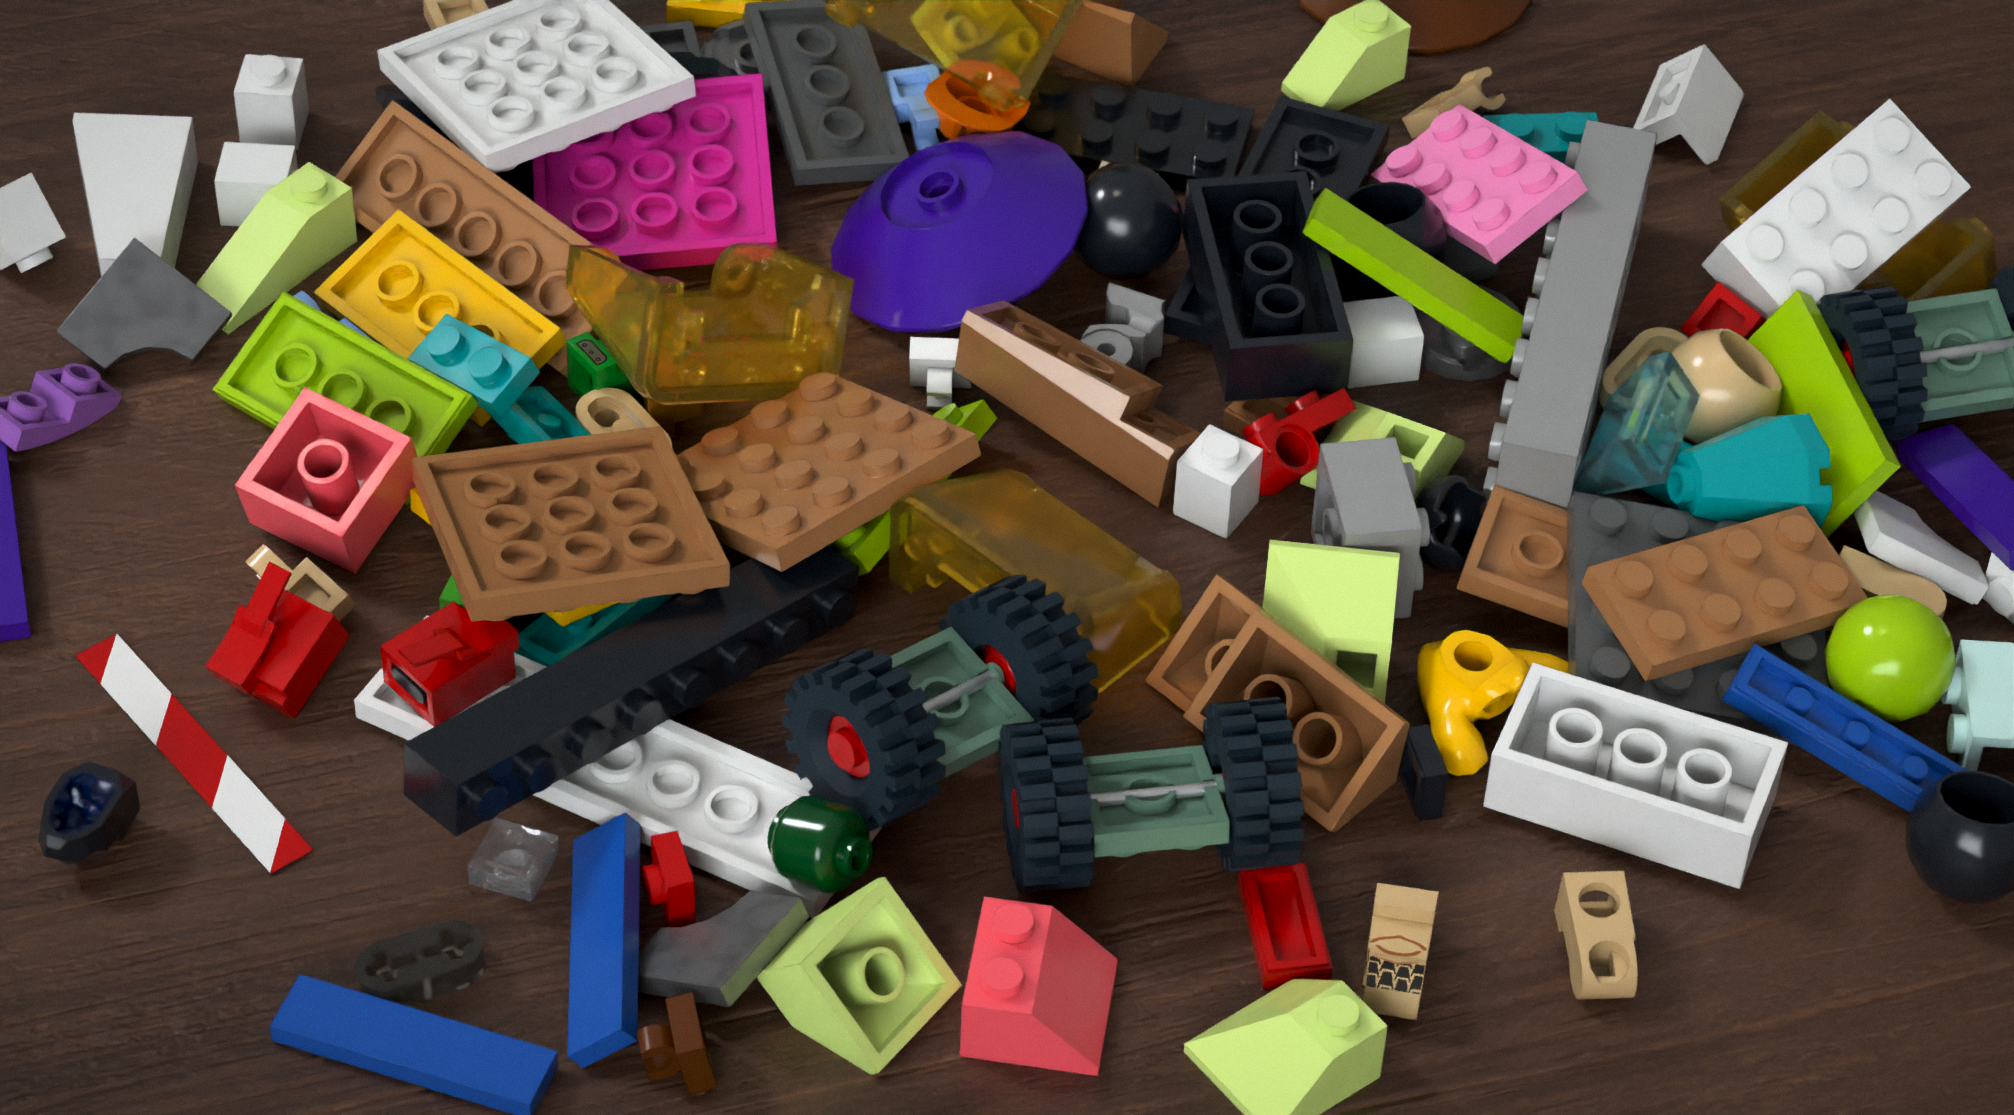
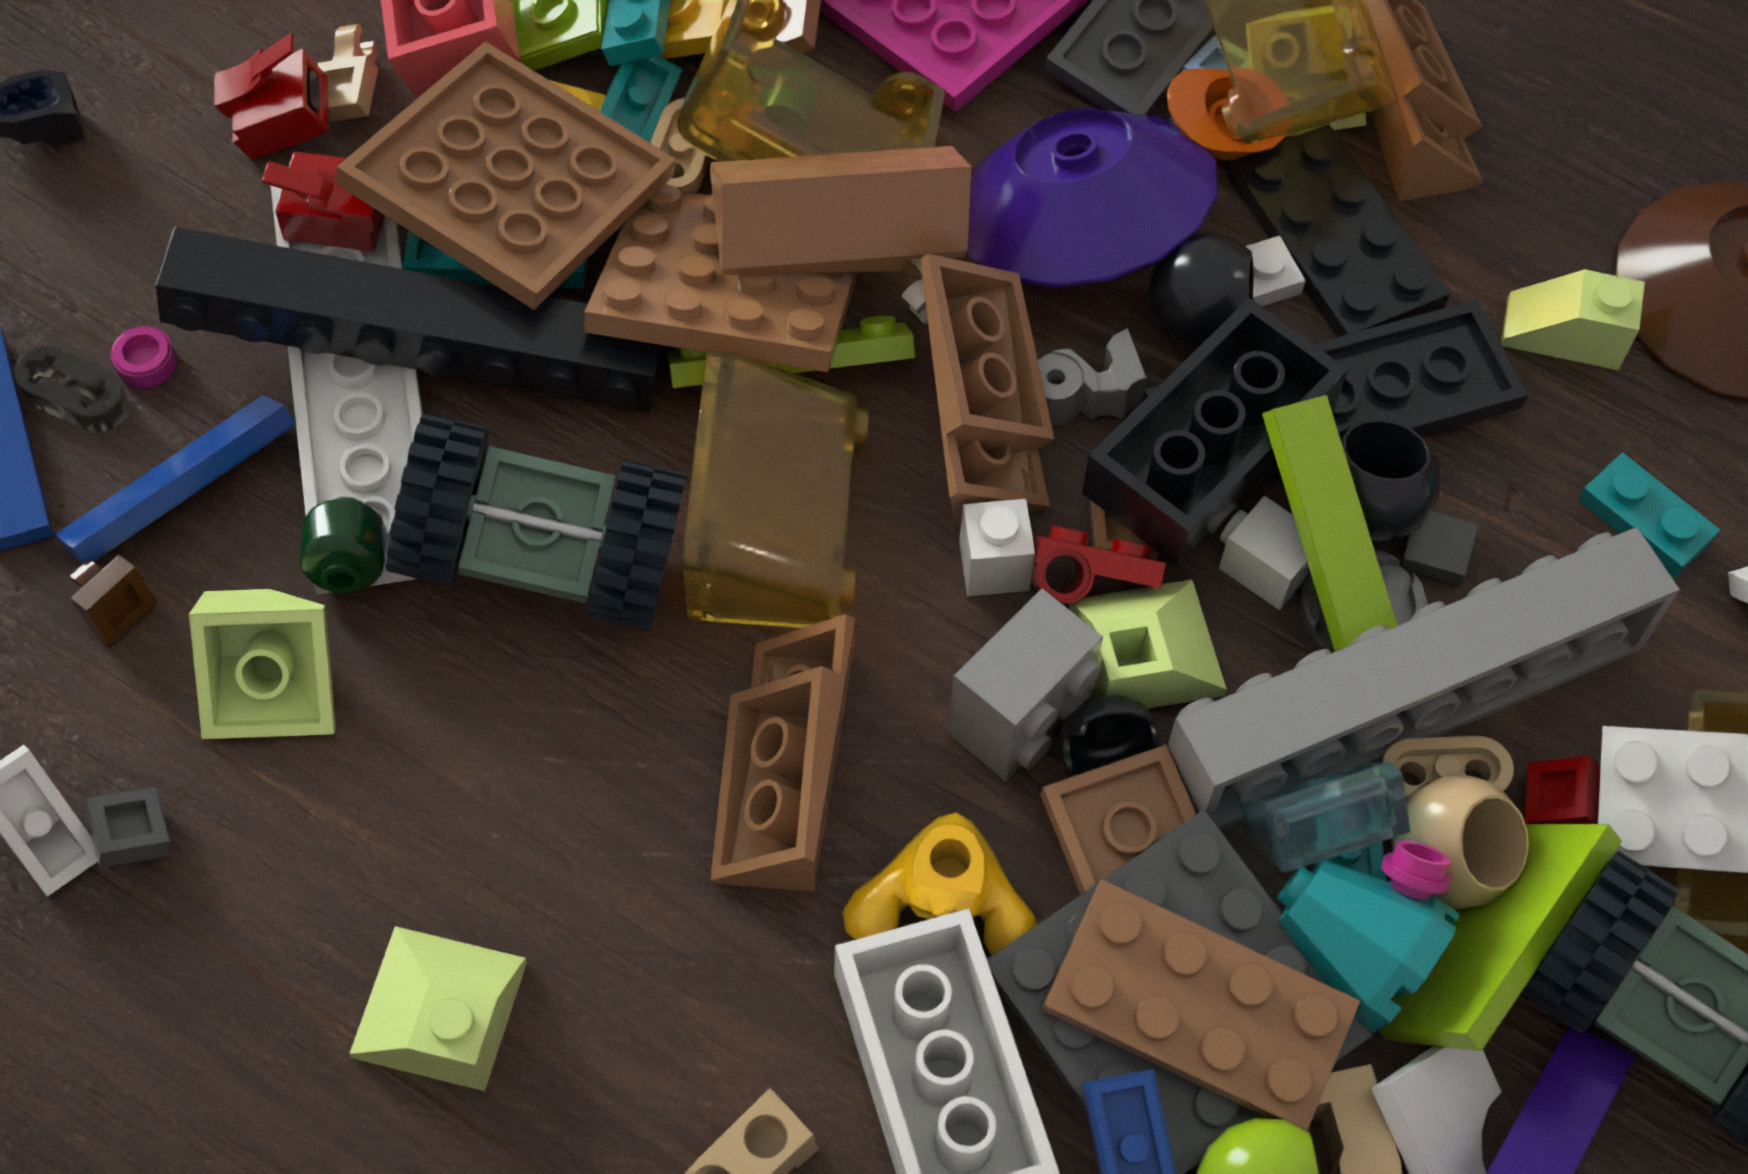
camera: 50 degrees right, 15 degrees up
(194, 754) = (168, 131): sticker -> none
(436, 897) = (143, 357): none -> dark pink tile
(513, 859) = (208, 372): clear plate -> none
(670, 880) = (263, 480): red plate -> none
(722, 953) = (206, 555): flat silver tile -> none
(847, 345) = (840, 211): none -> medium nougat slope
(1036, 990) = (350, 787): coral slope -> none
(1226, 793) = (623, 769): black plate -> none
(1284, 925) = (578, 915): red tile -> none
(1337, 604) = (901, 733): yellowish green slope -> none
(1398, 949) = (600, 1020): tan leg -> none
(1423, 773) = (816, 905): black tile -> none
(1466, 93) = (1597, 423): tan plate -> none
(1483, 181) = (1500, 501): bright pink plate -> none
(1738, 405) = (1417, 869): none -> dark pink plate

